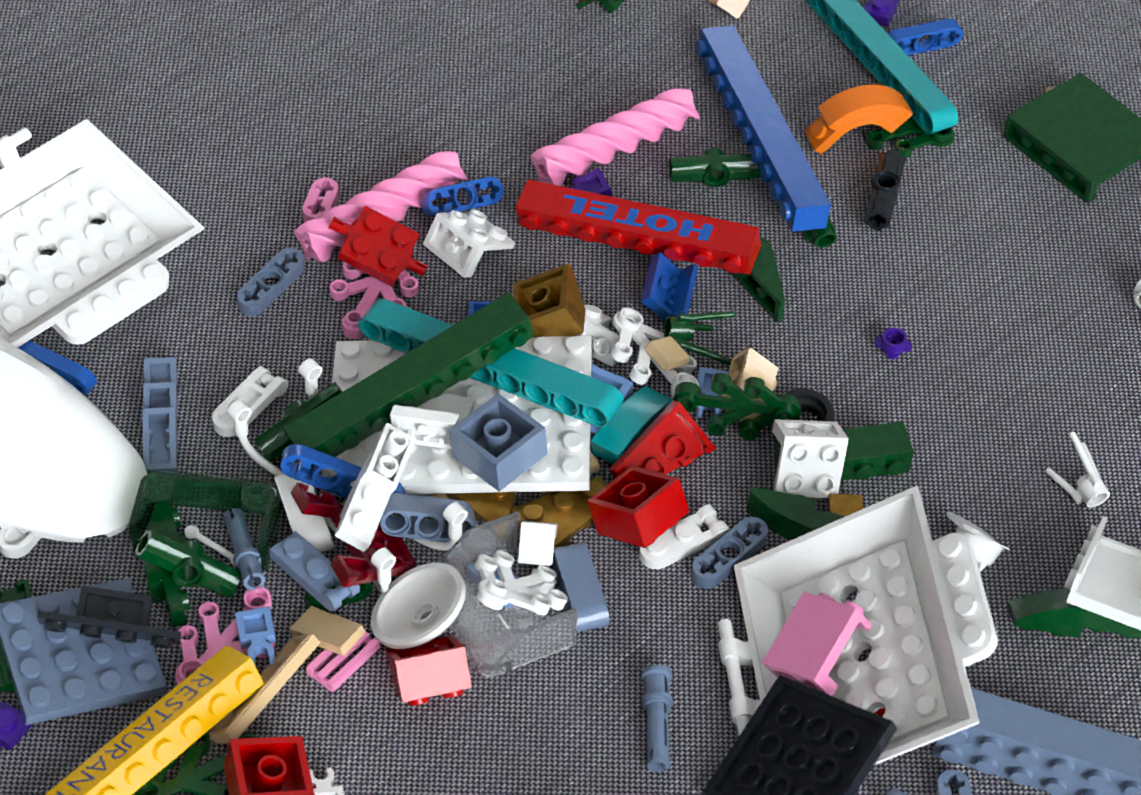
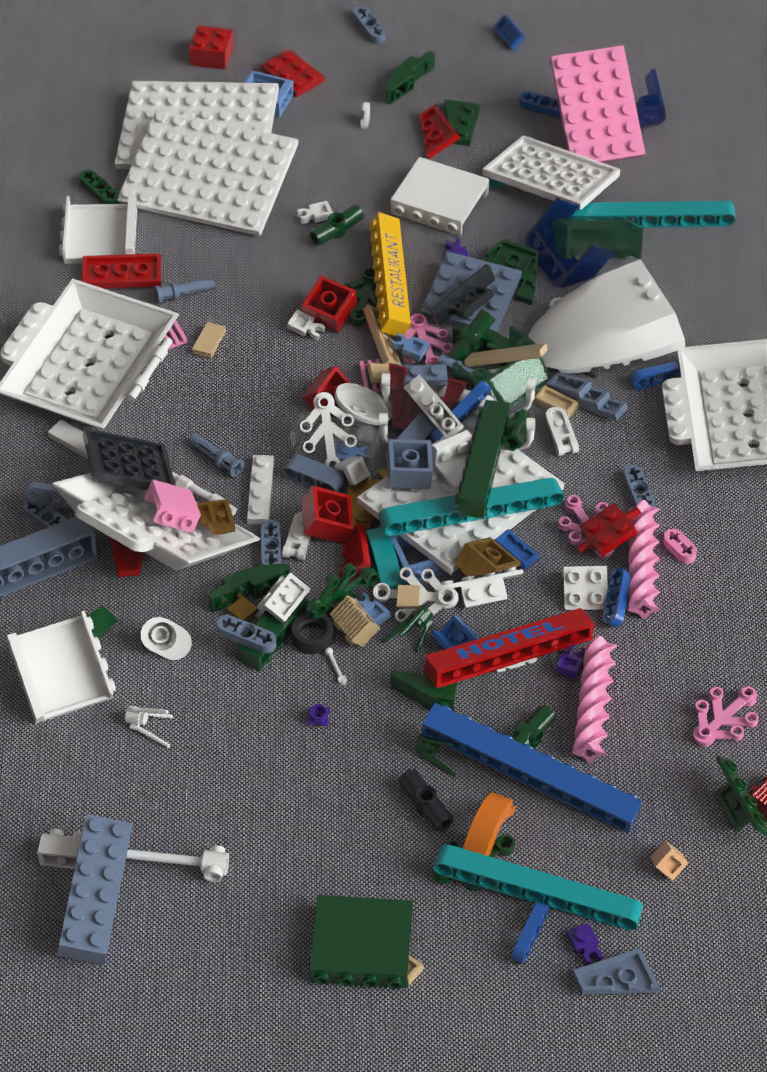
camera: 135 degrees right, 0 degrees up
(196, 490) = (506, 355): none -> tan tile
(197, 443) = (550, 398): none -> tan tile
(548, 51) = (724, 718): none -> bright pink plant
(655, 633) = (260, 489): none -> white plate
(763, 610) = (216, 516): none -> pearl gold wing
(823, 362) = (341, 679): none -> white hinge
(891, 459) = (240, 626): none -> sand blue beam

